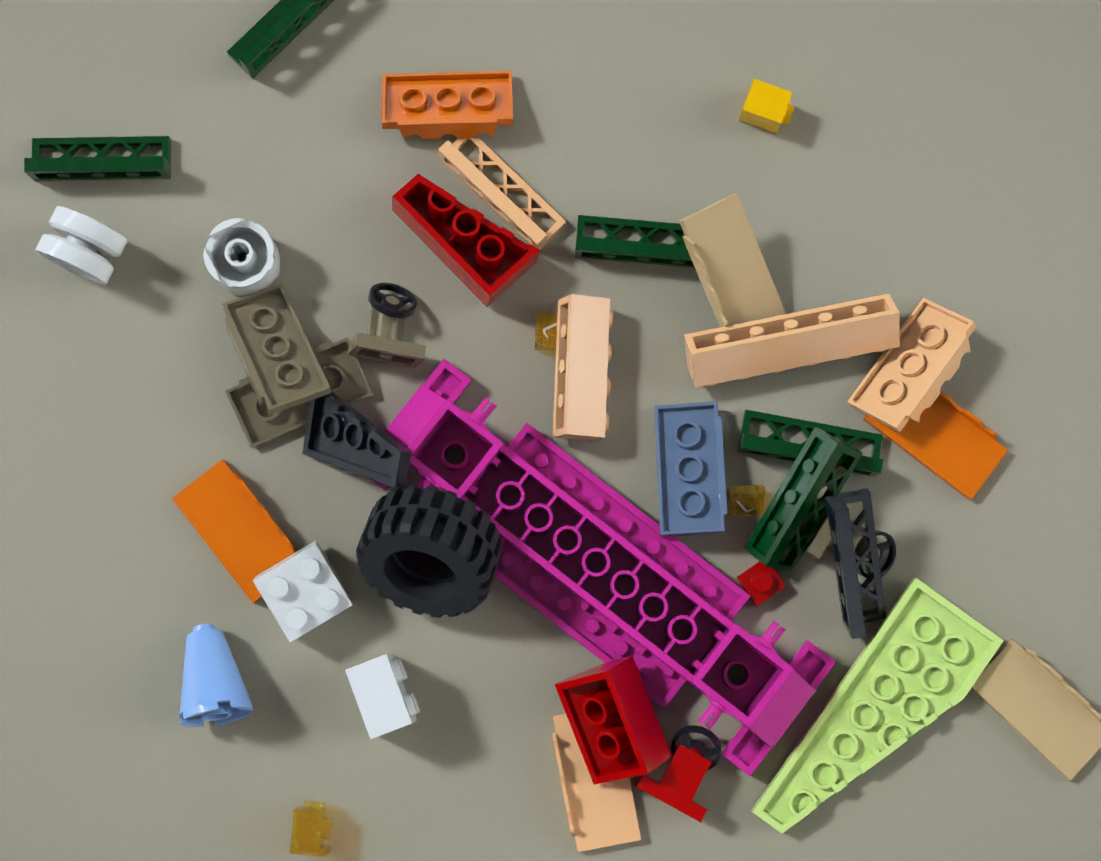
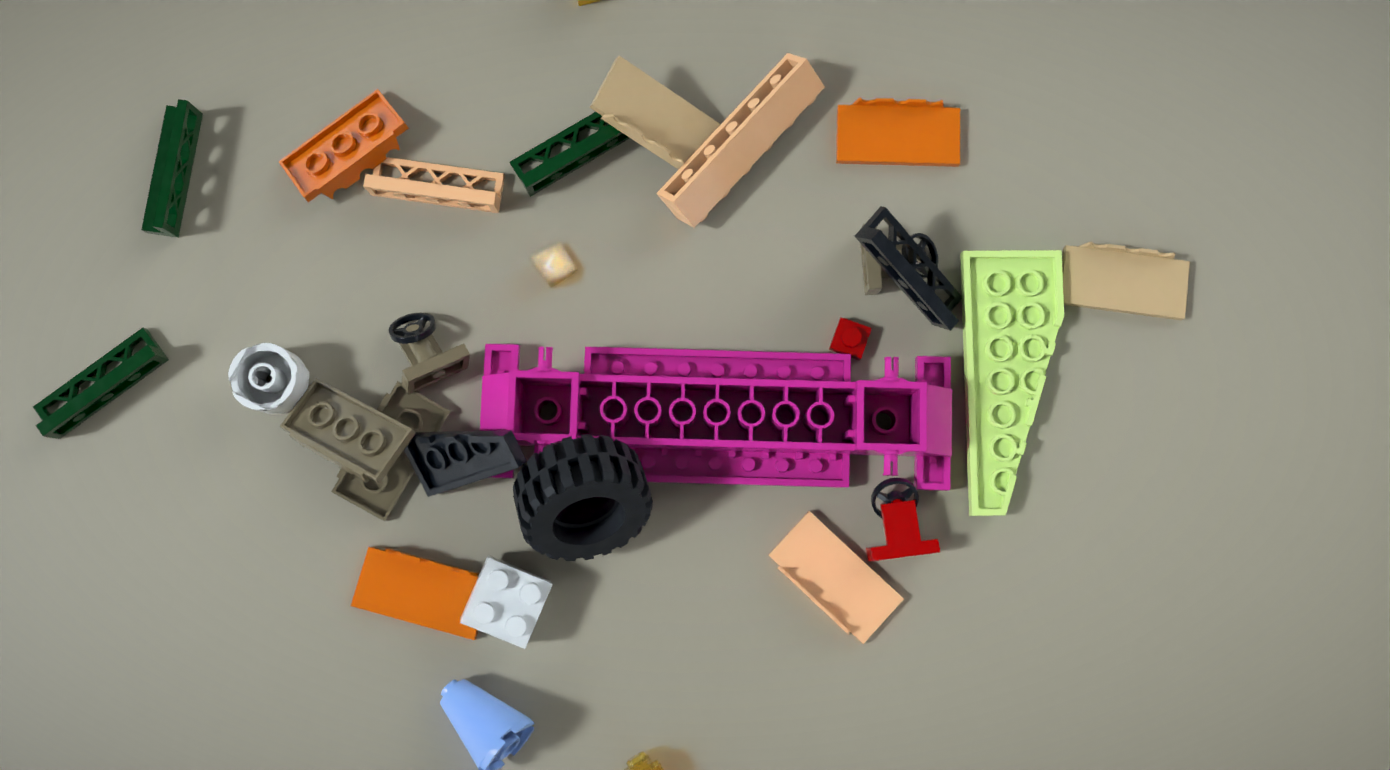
camera: 35 degrees left, 0 degrees up
(83, 241) = (131, 460): white wheel -> none
(382, 695) = (627, 635): white brick -> none
(471, 246) = (435, 242): red wedge -> none
(582, 367) = (597, 274): light nougat brick -> none
(613, 721) = (818, 524): red slope -> none
(691, 469) = (736, 291): sand blue piece -> none
(745, 500) = (794, 285): clear yellow slope -> none
(789, 451) = (817, 215): dark green fence -> none
(798, 500) = (834, 254): dark green fence -> none
(911, 375) = (849, 103): light nougat piece -> none

